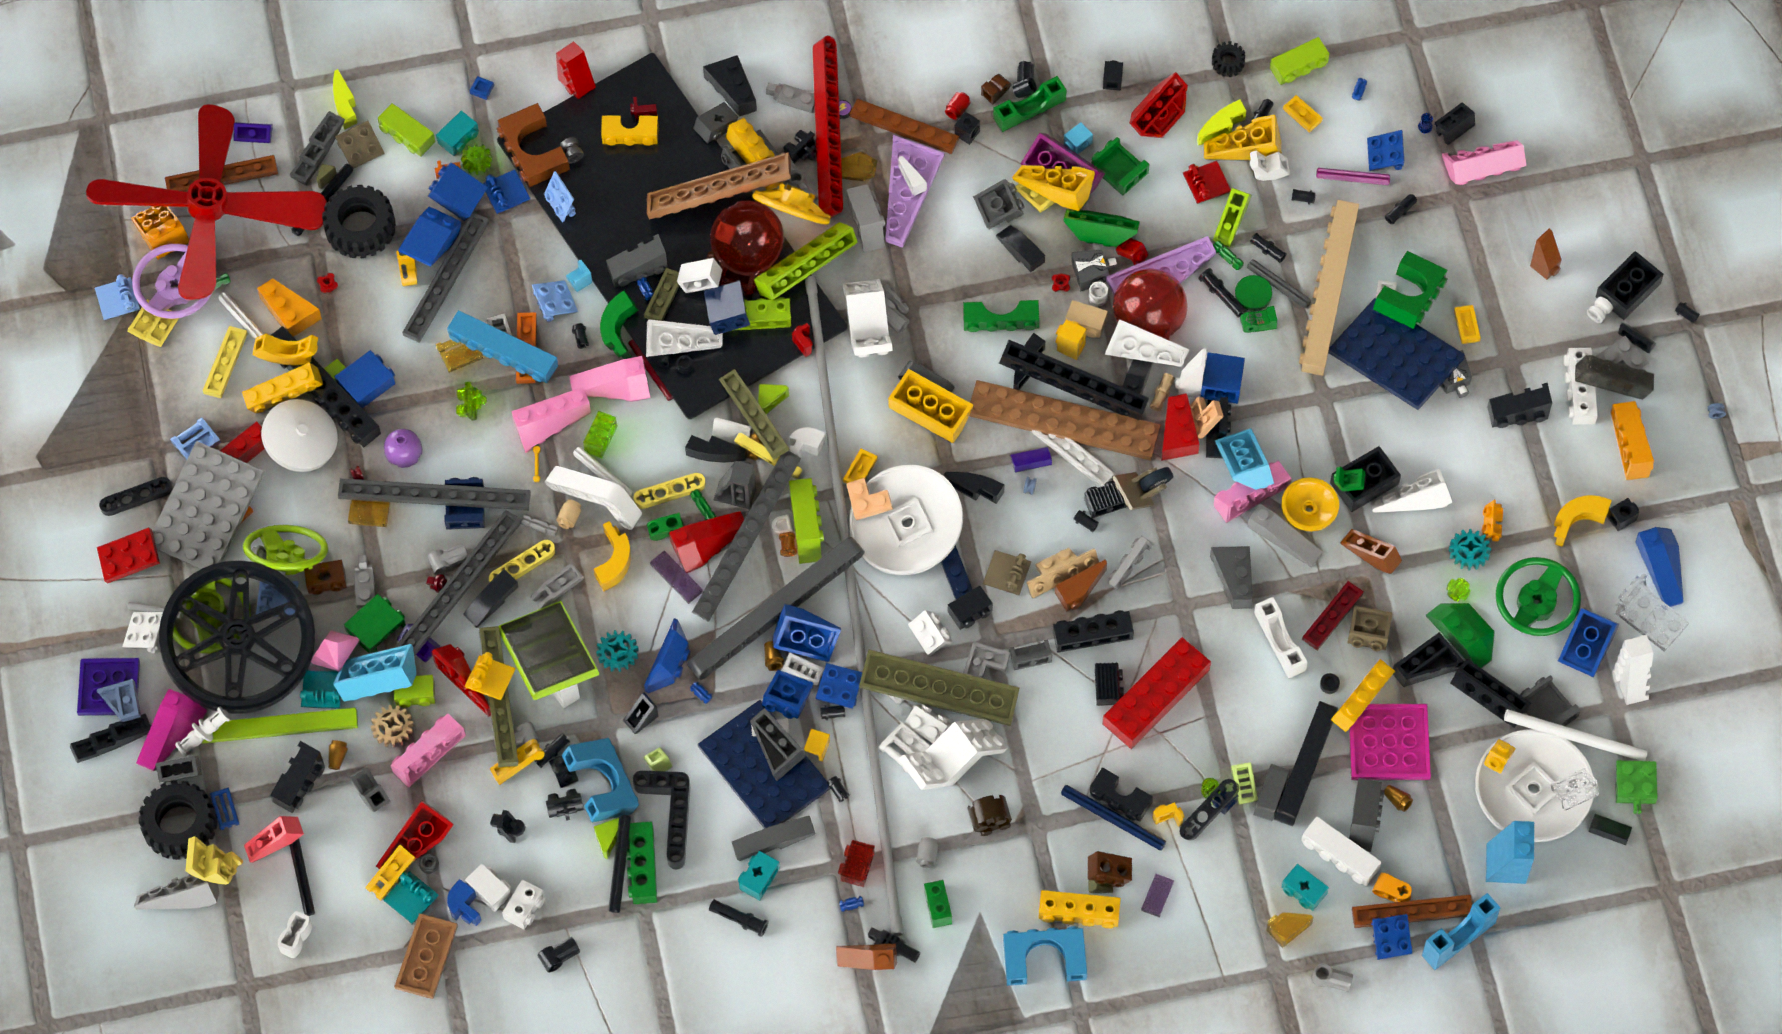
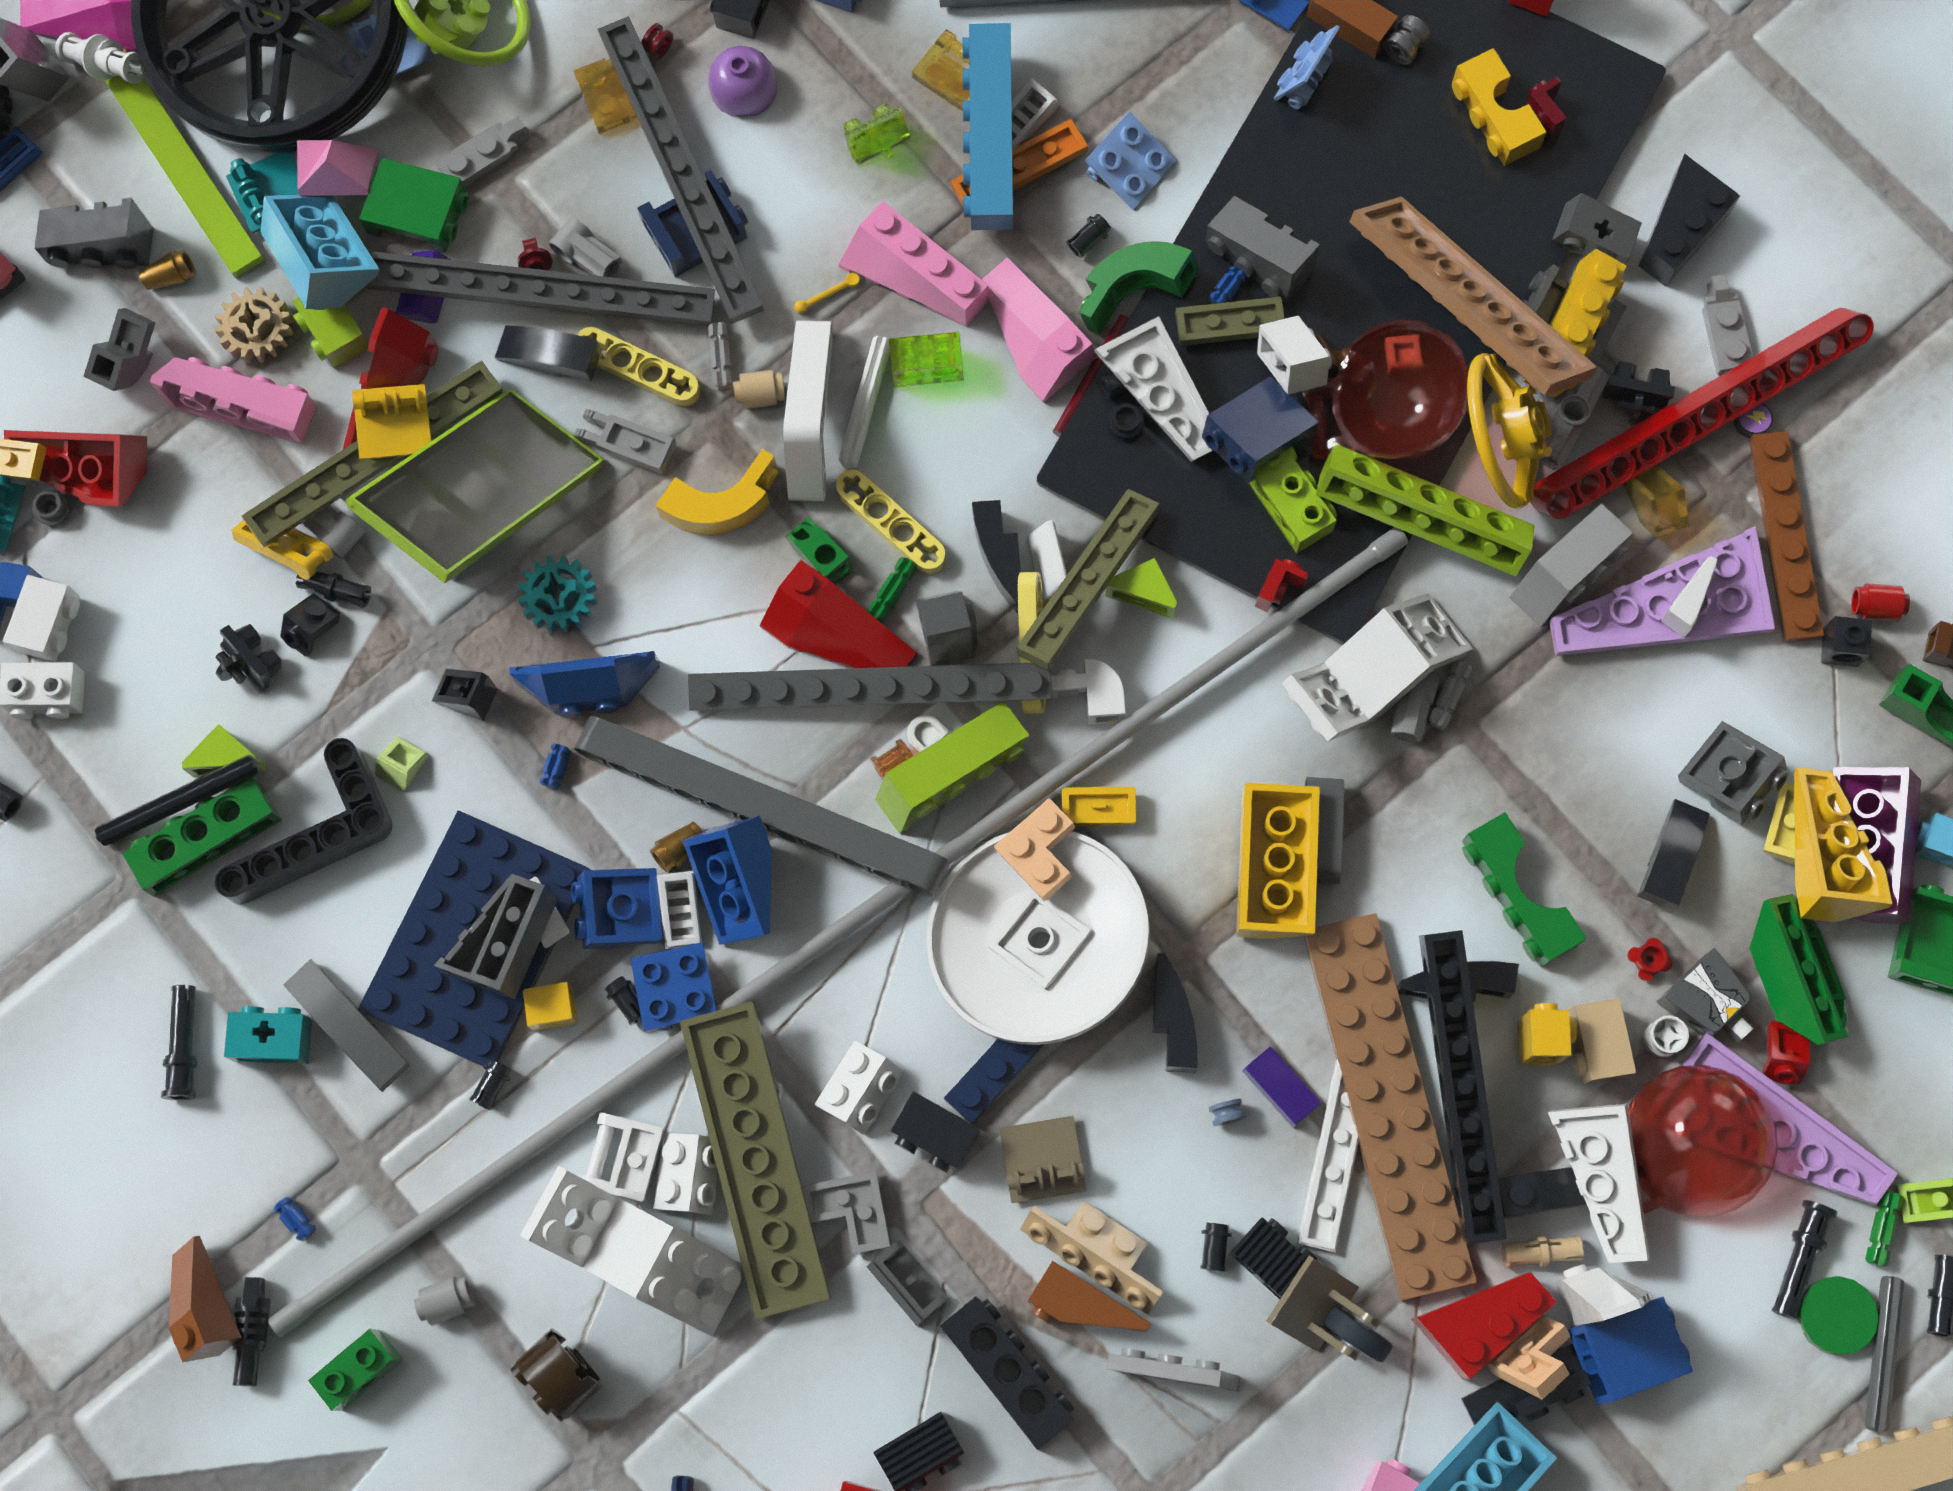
camera: 65 degrees right, 10 degrees up
(333, 569) = (468, 106): reddish brown brick -> none
(508, 825) = (156, 589): black hips -> none
(580, 277) = (1190, 177): medium azure panel -> none
(602, 756) = (354, 671): dark azure arch -> none
(676, 577) = (743, 616): clear purple tile -> none
(857, 863) = (367, 1190): clear red brick -> none
(1259, 320) = (1788, 1356): green leg -> none

